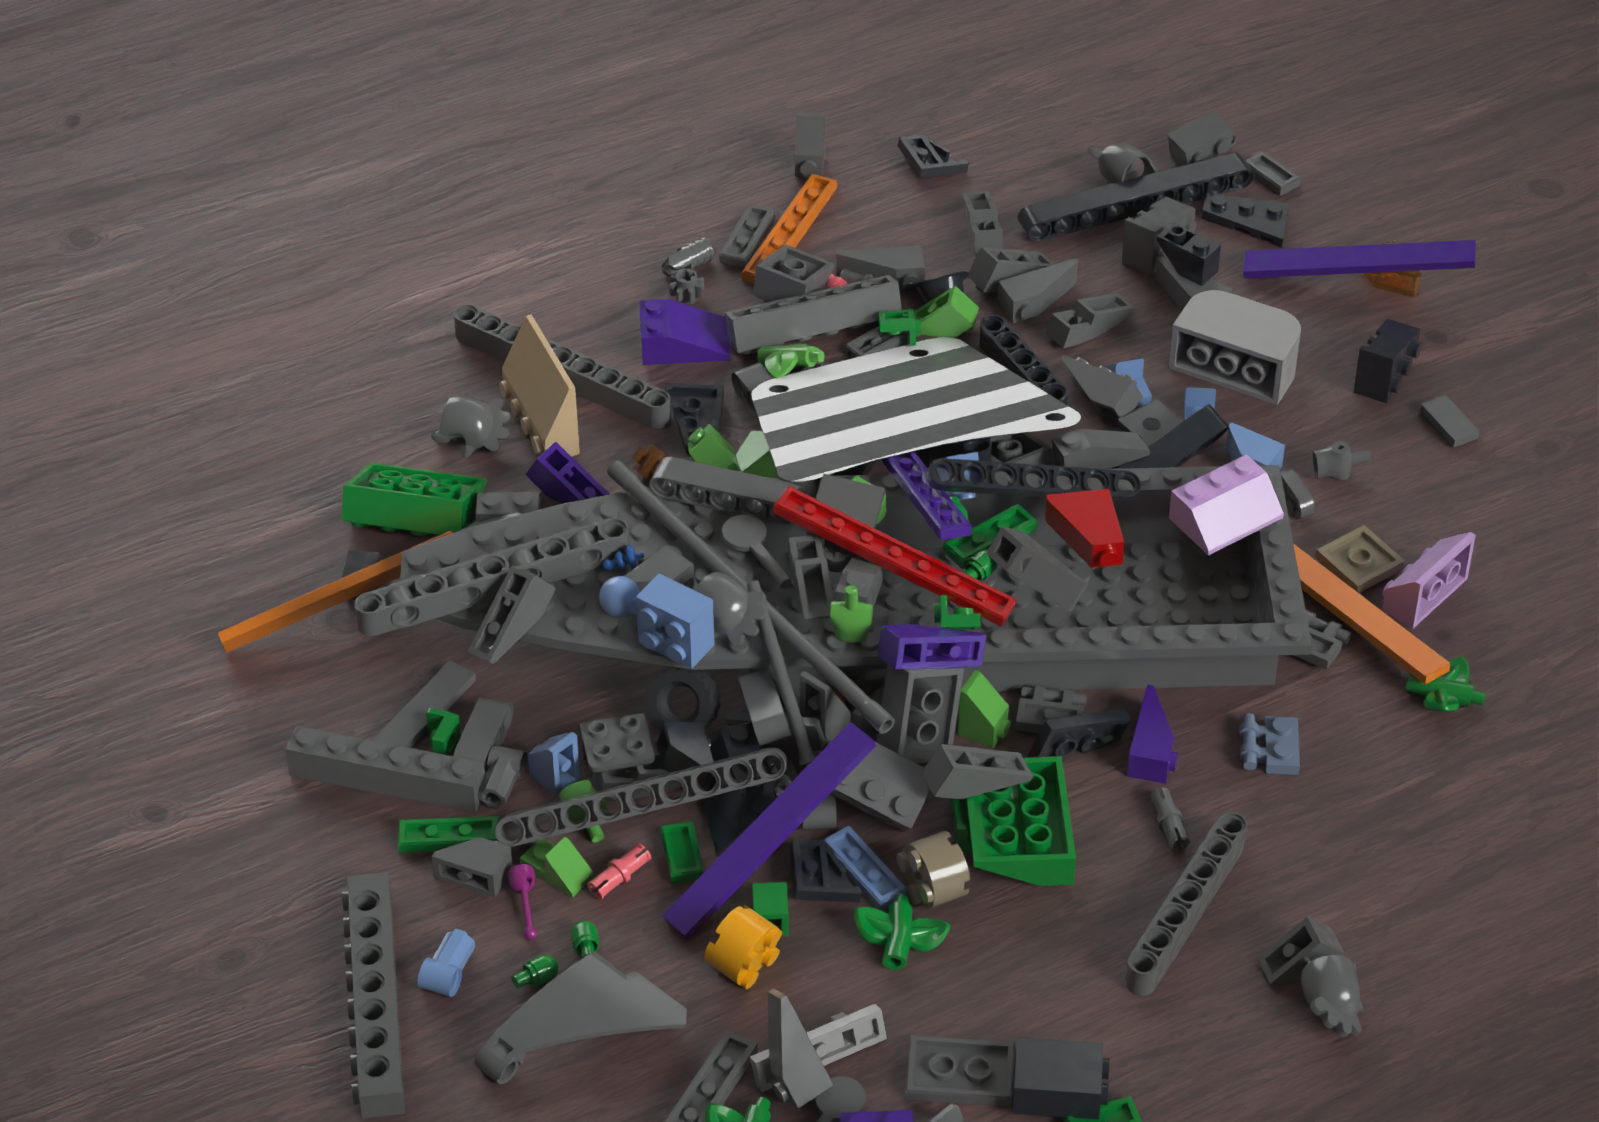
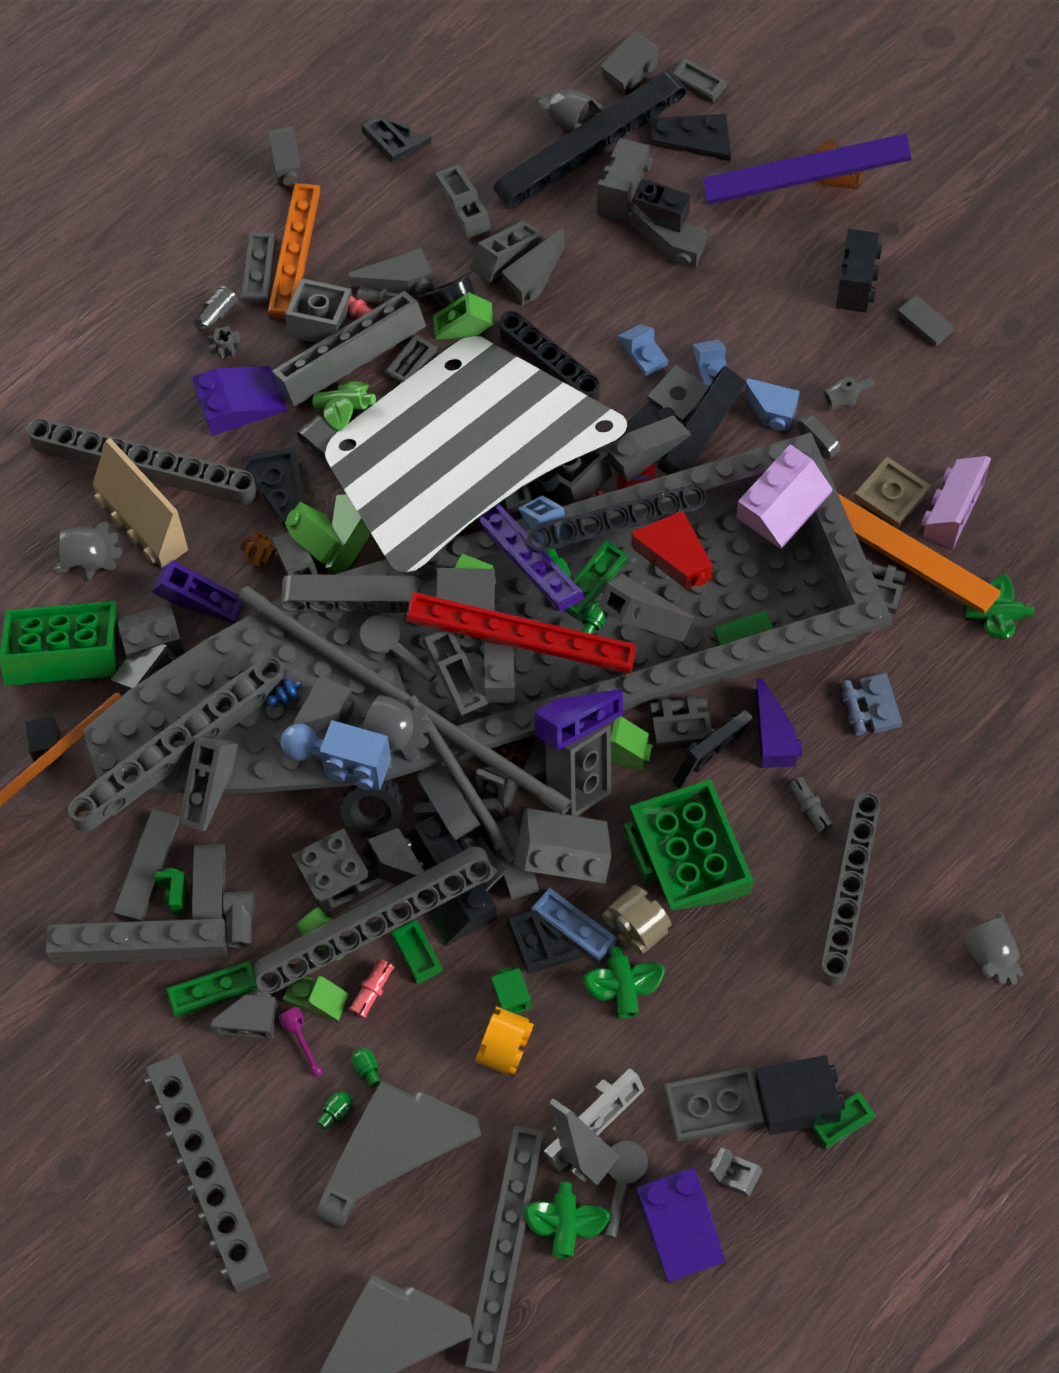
camera: 15 degrees left, 20 degrees up
(444, 970) = (258, 1134): medium blue piece -> none
(555, 763) = (281, 895): medium blue slope -> none
(769, 830) = (492, 926): dark purple tile -> none
(850, 617) = (504, 706): bright green piece -> none
(897, 321) = (427, 338): green bracket -> none
(961, 619) = (595, 680): green bracket -> none
(970, 771) = (647, 821): dark grey slope -> none
(1088, 319) = (589, 288): dark grey slope -> none
(1109, 392) = (631, 370): dark grey slope -> none
(1236, 344) = (729, 290): light grey brick -> none
(1297, 948) = (955, 914): dark grey slope -> none

